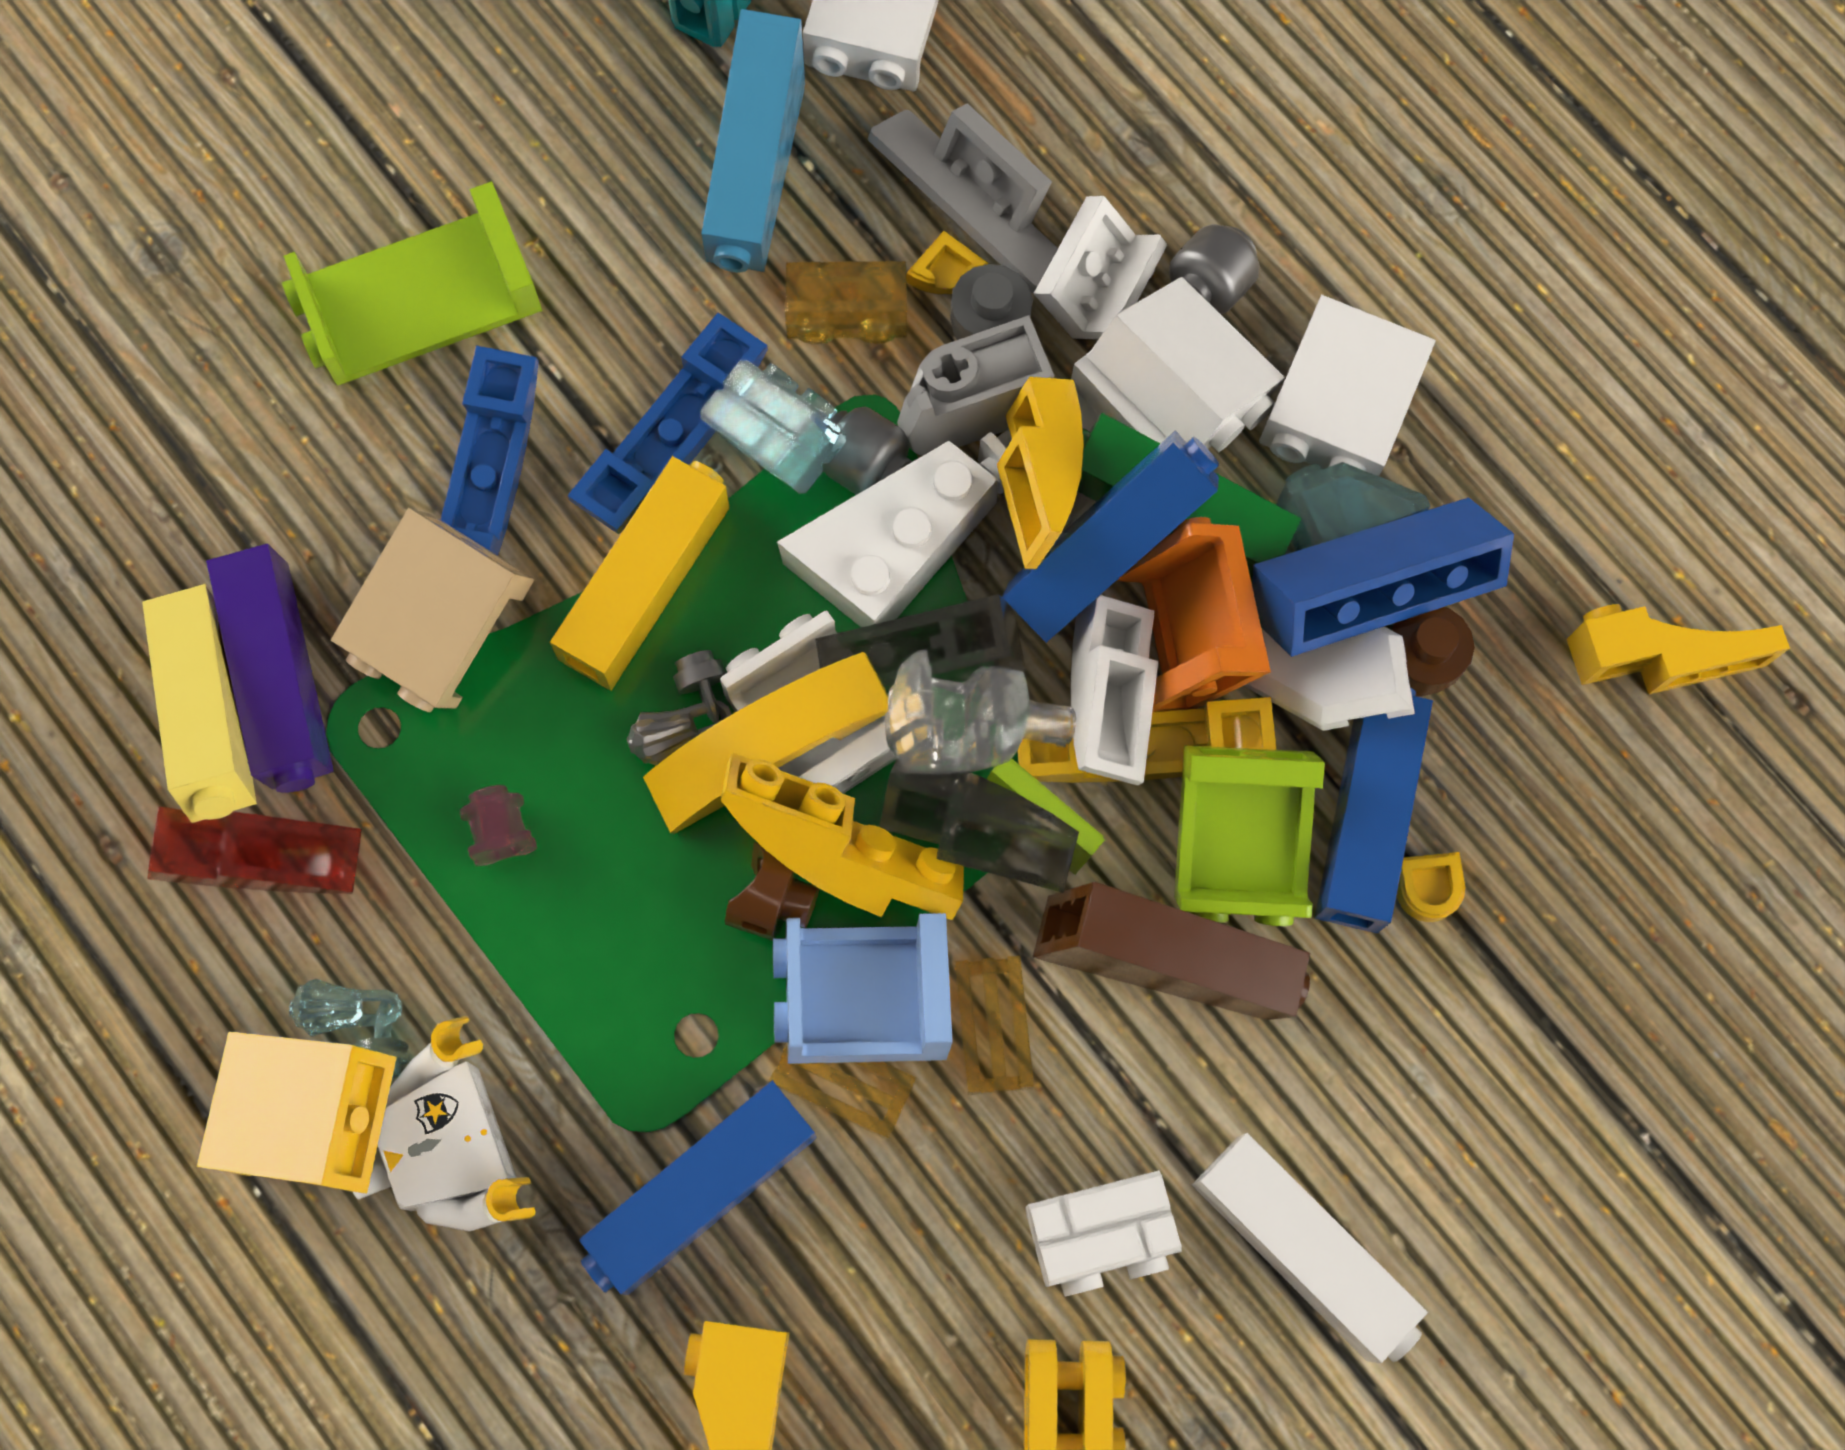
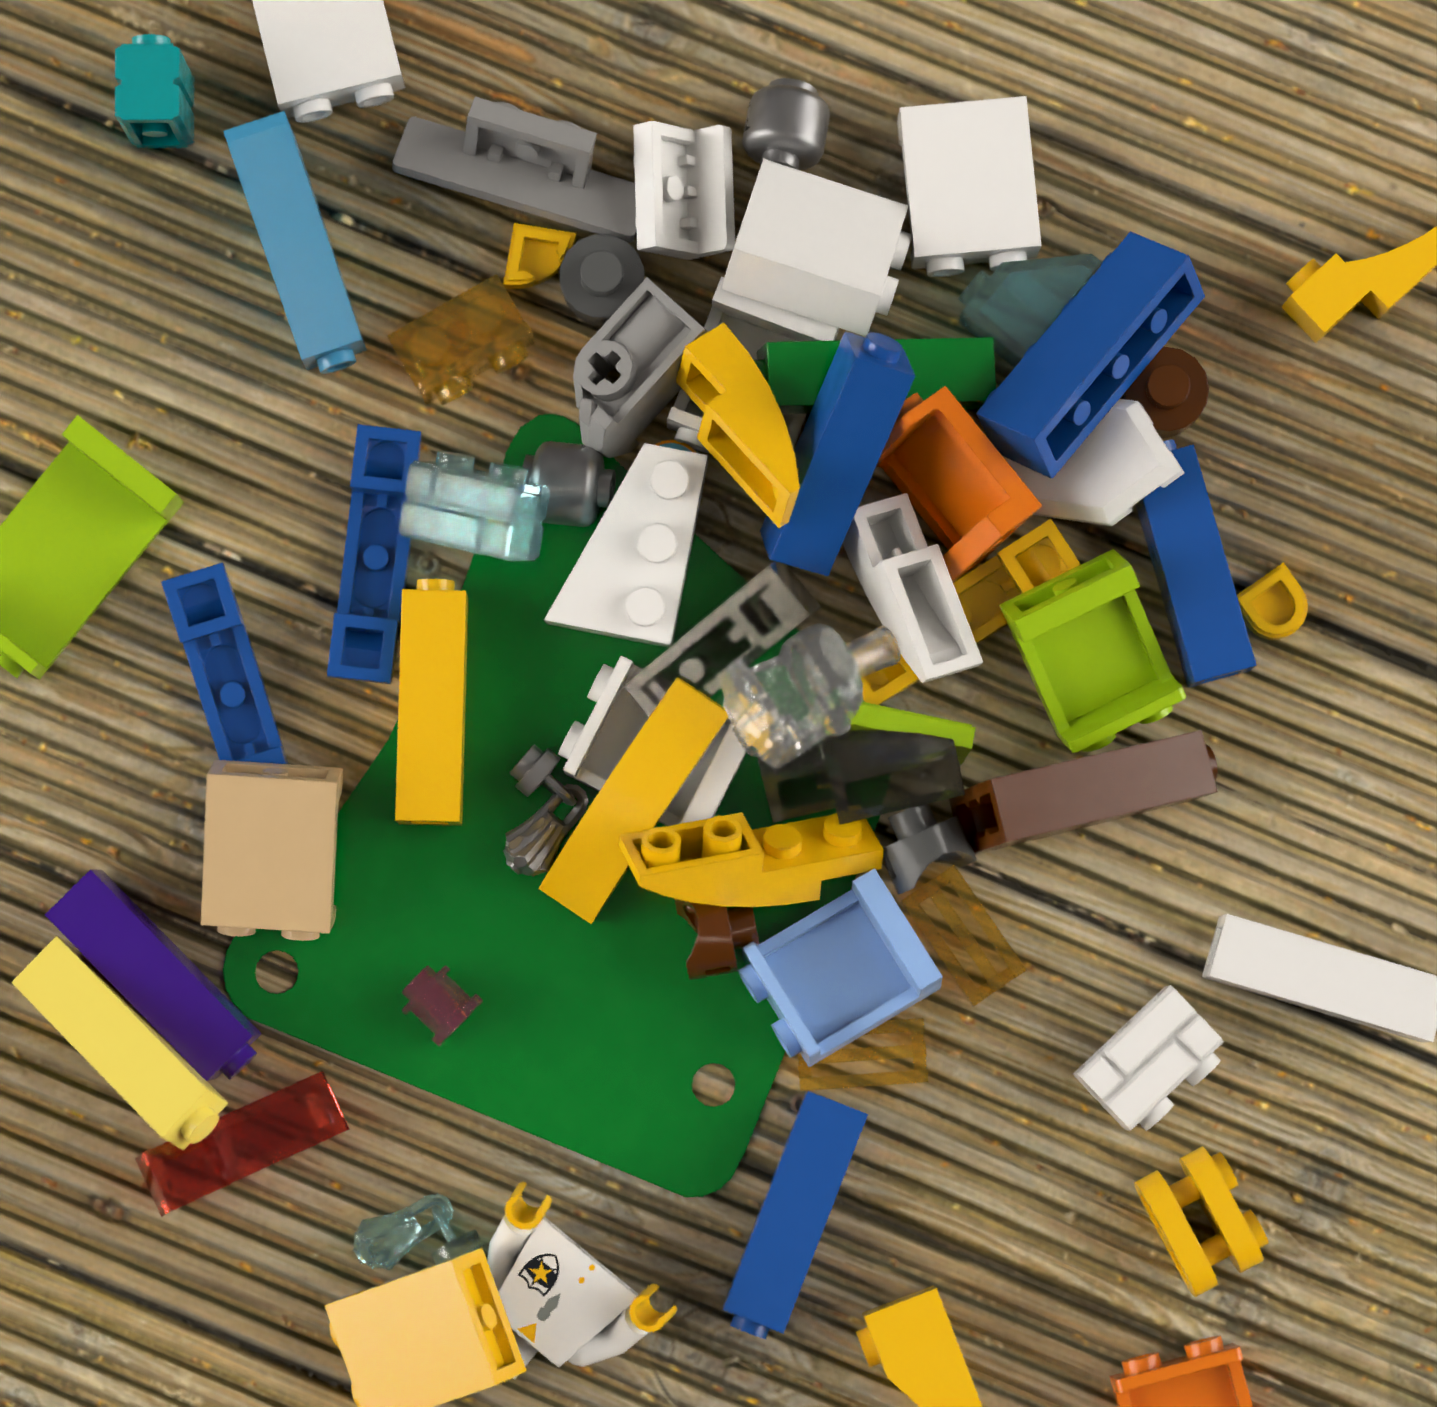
camera: 30 degrees left, 10 degrees up
(1002, 920) = (923, 842): none -> dark grey piece

